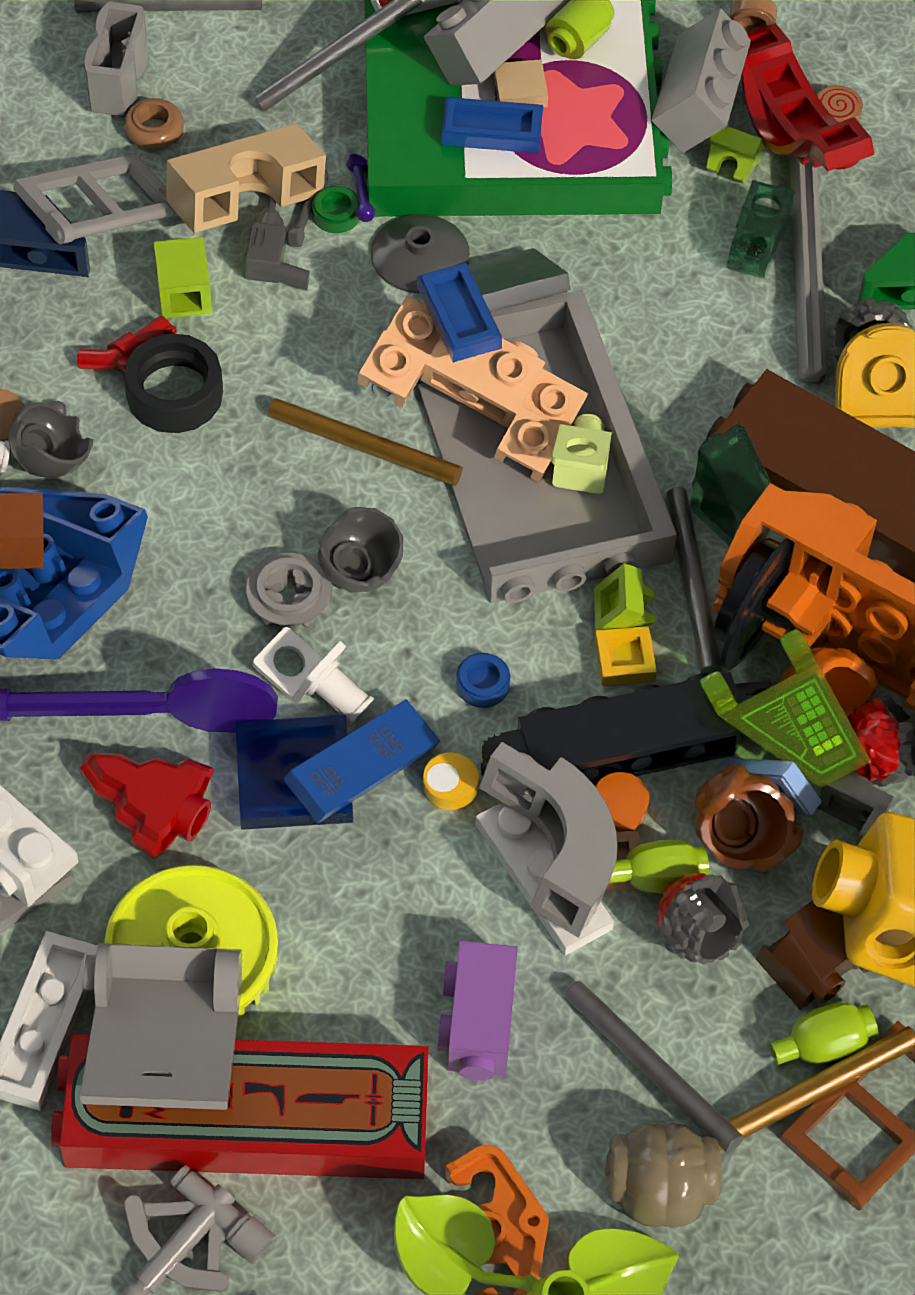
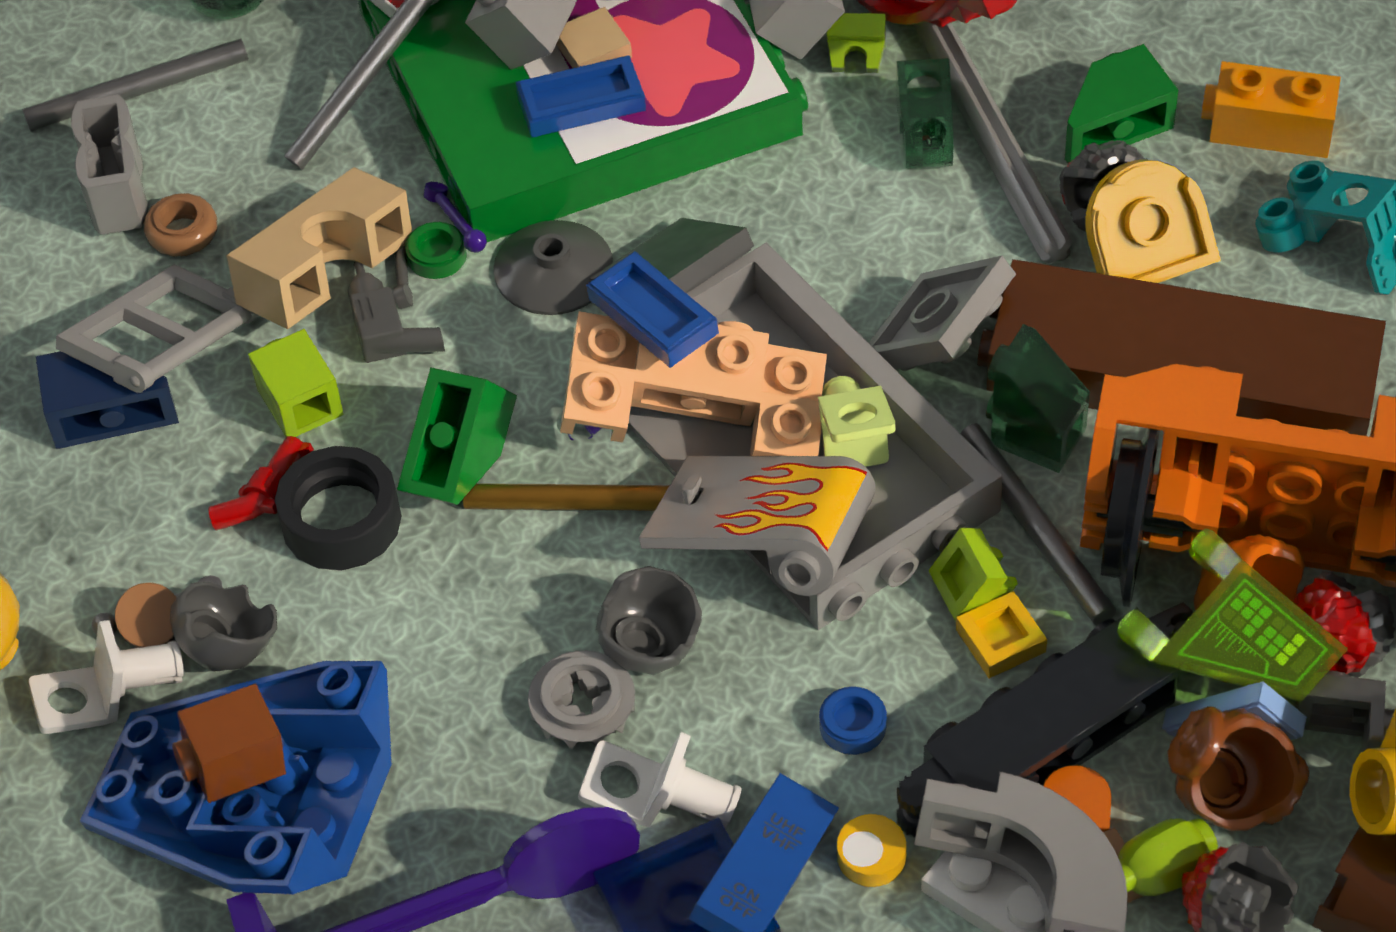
camera: 15 degrees left, 5 degrees down
(281, 359) = (455, 435): none -> green slope
(494, 498) = (788, 505): none -> light grey door
(691, 392) = (942, 313): none -> light grey plate

